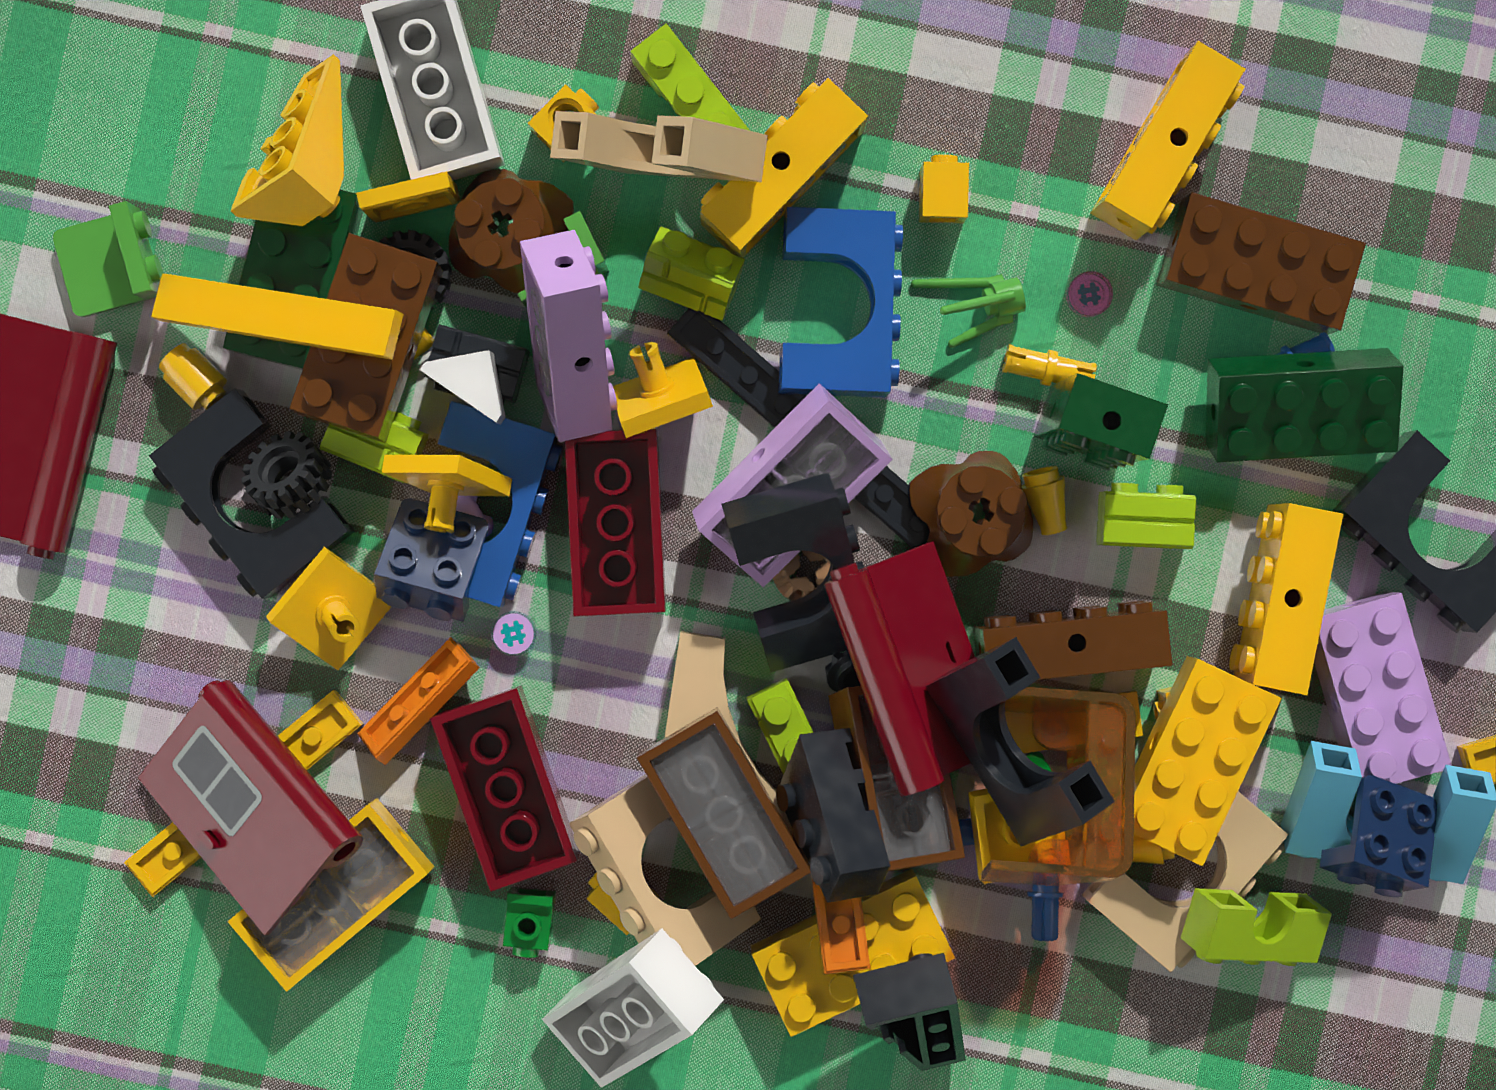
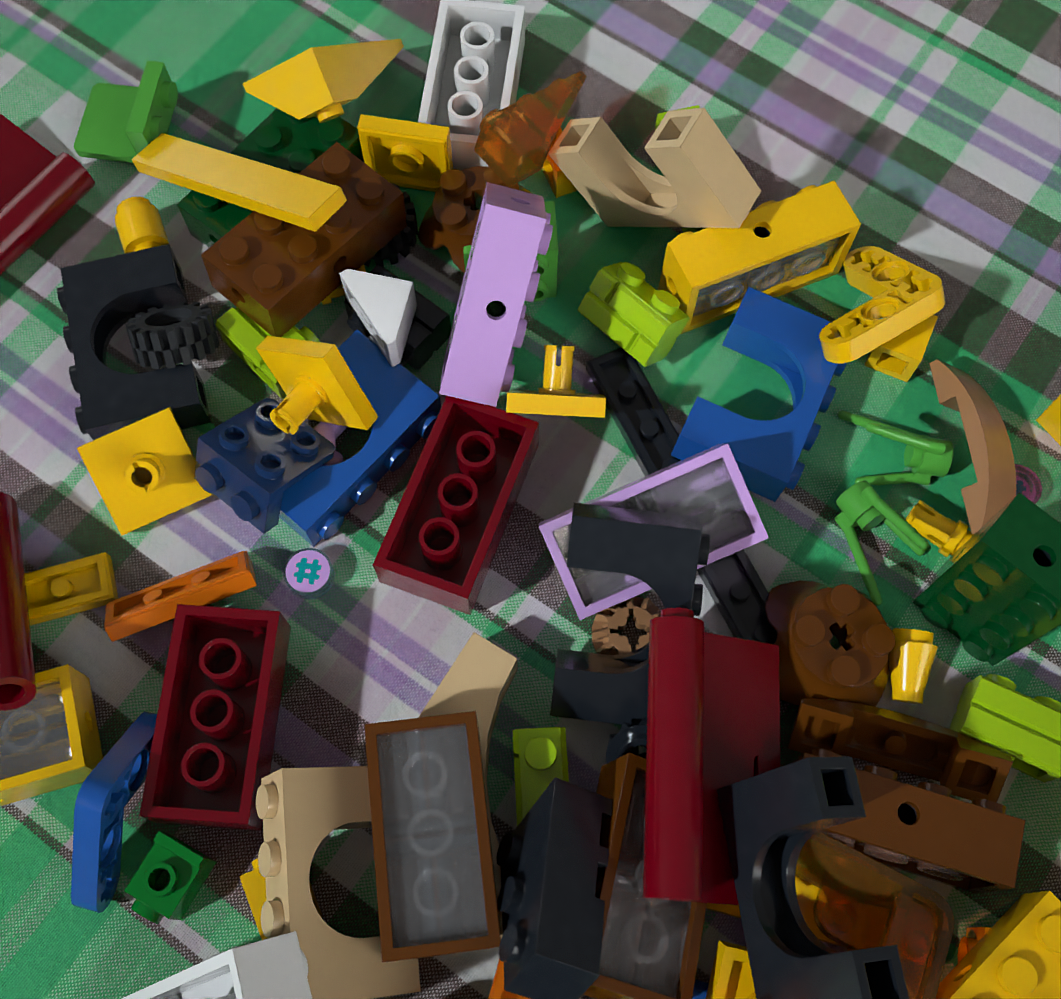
camera: 20 degrees right, 20 degrees down
(459, 892) = (101, 814): none -> blue beam
(524, 140) = (521, 135): none -> clear orange slope
(925, 175) = (892, 286): none -> yellow beam
(964, 374) = (866, 509): none -> bright green plant
(1050, 271) = (986, 440): none -> medium nougat slope
(1056, 570) = (902, 744): none -> reddish brown slope

